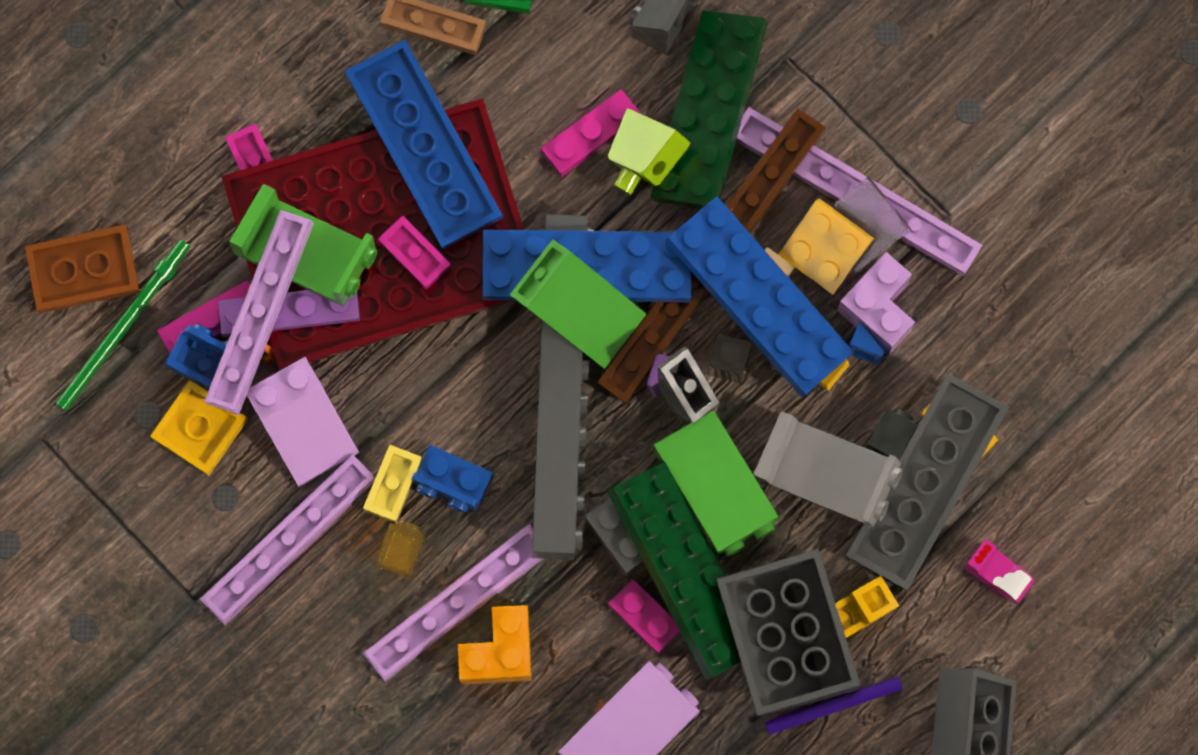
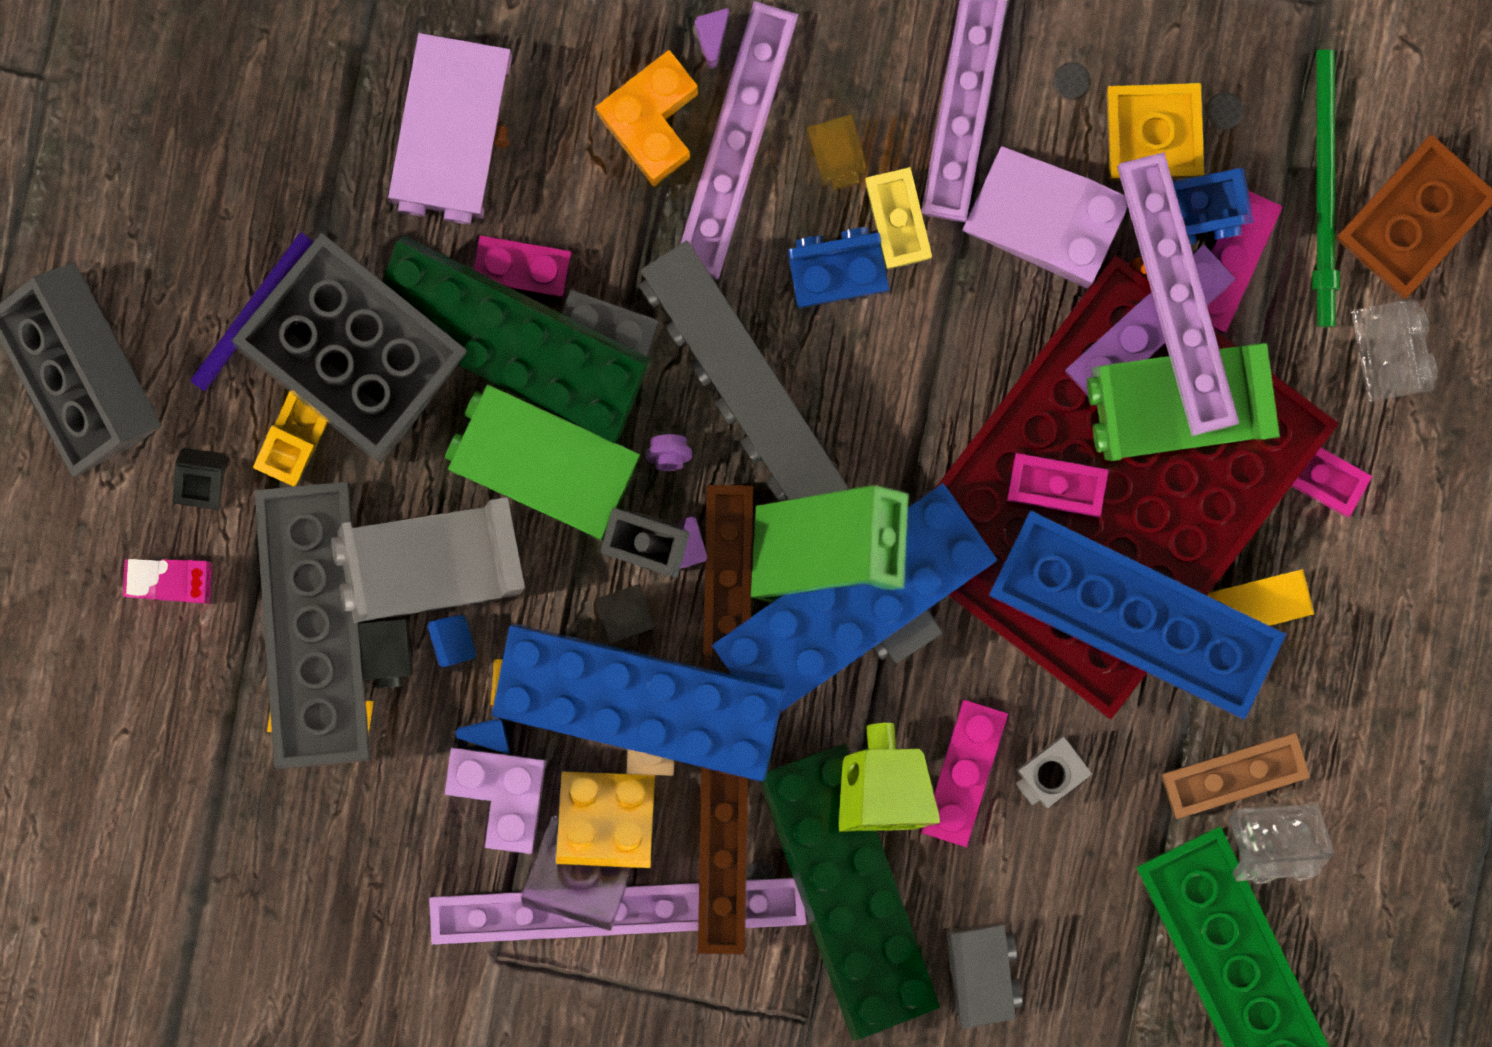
camera: 140 degrees right, 10 degrees up
(156, 200) = (1394, 350): none -> clear bracket
(339, 109) = (1270, 599): none -> yellow slope
(426, 675) = (710, 33): none -> medium lavender slope
(529, 85) = (1072, 767): none -> light grey brick
(634, 438) = (668, 452): none -> medium lavender plate
(847, 417) = (451, 640): none -> blue slope
(936, 625) = (199, 478): none -> pearl dark grey slope

